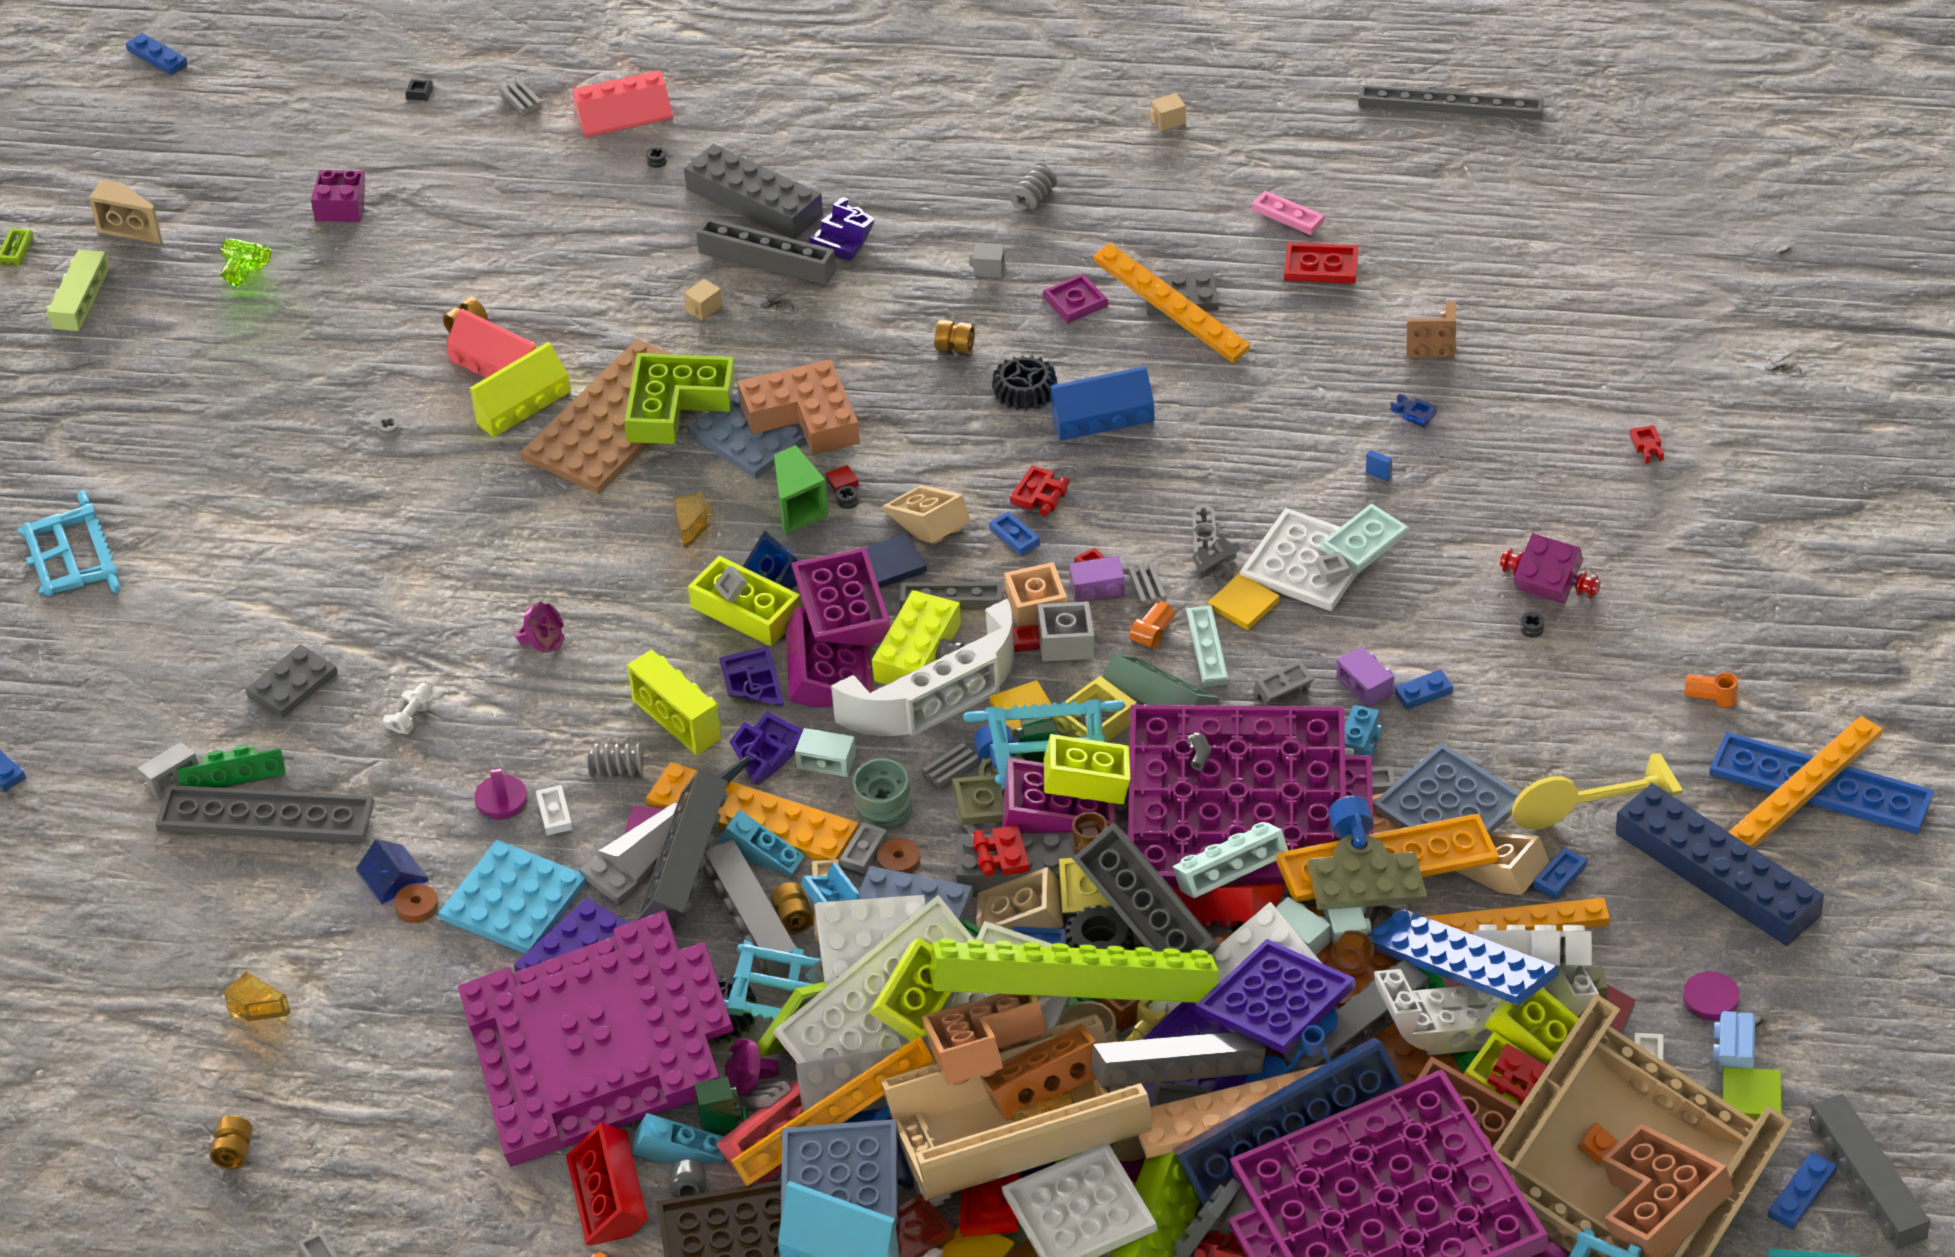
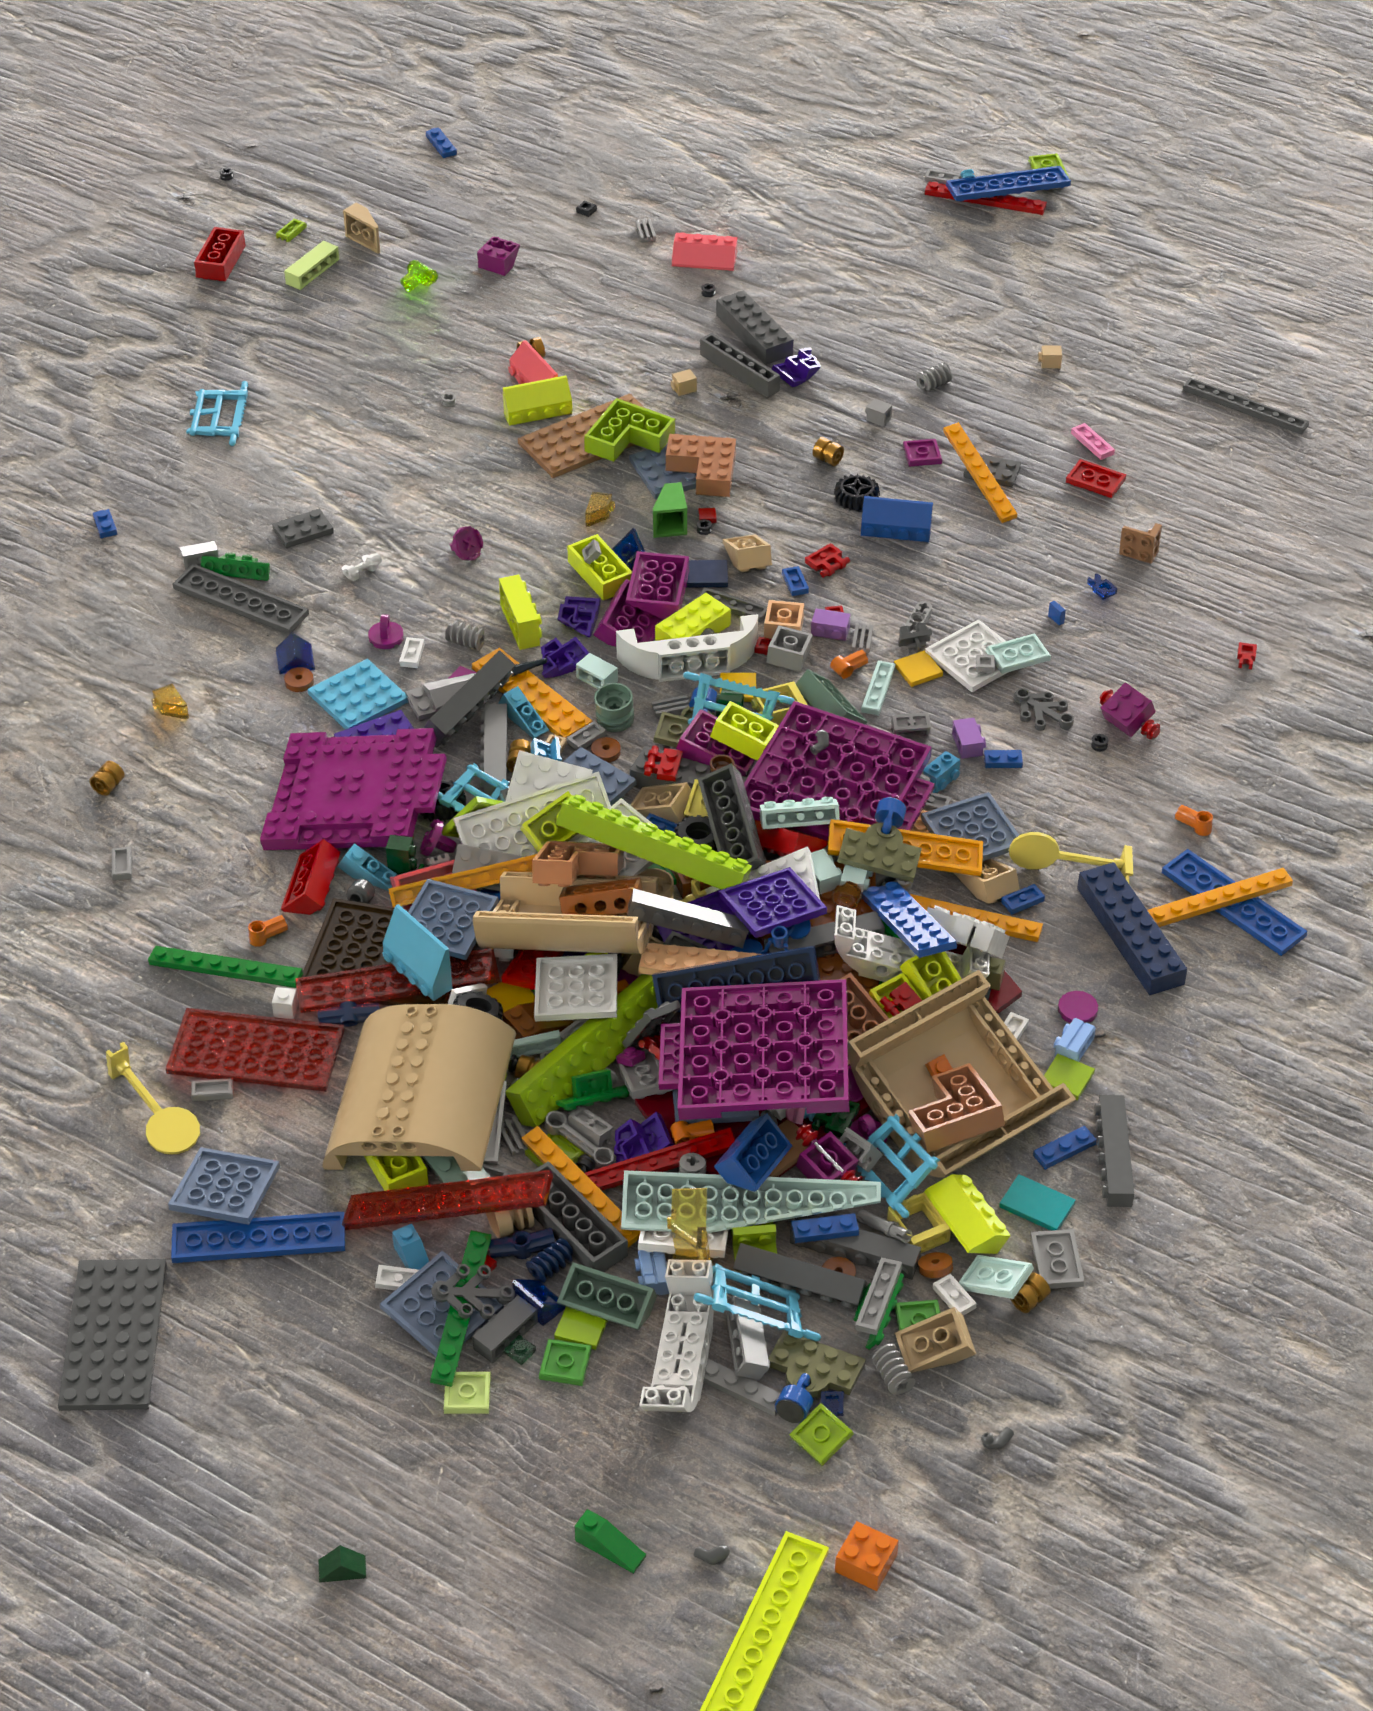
camera: 20 degrees right, 0 degrees up
(1405, 596) = (1024, 698): none -> dark grey plant

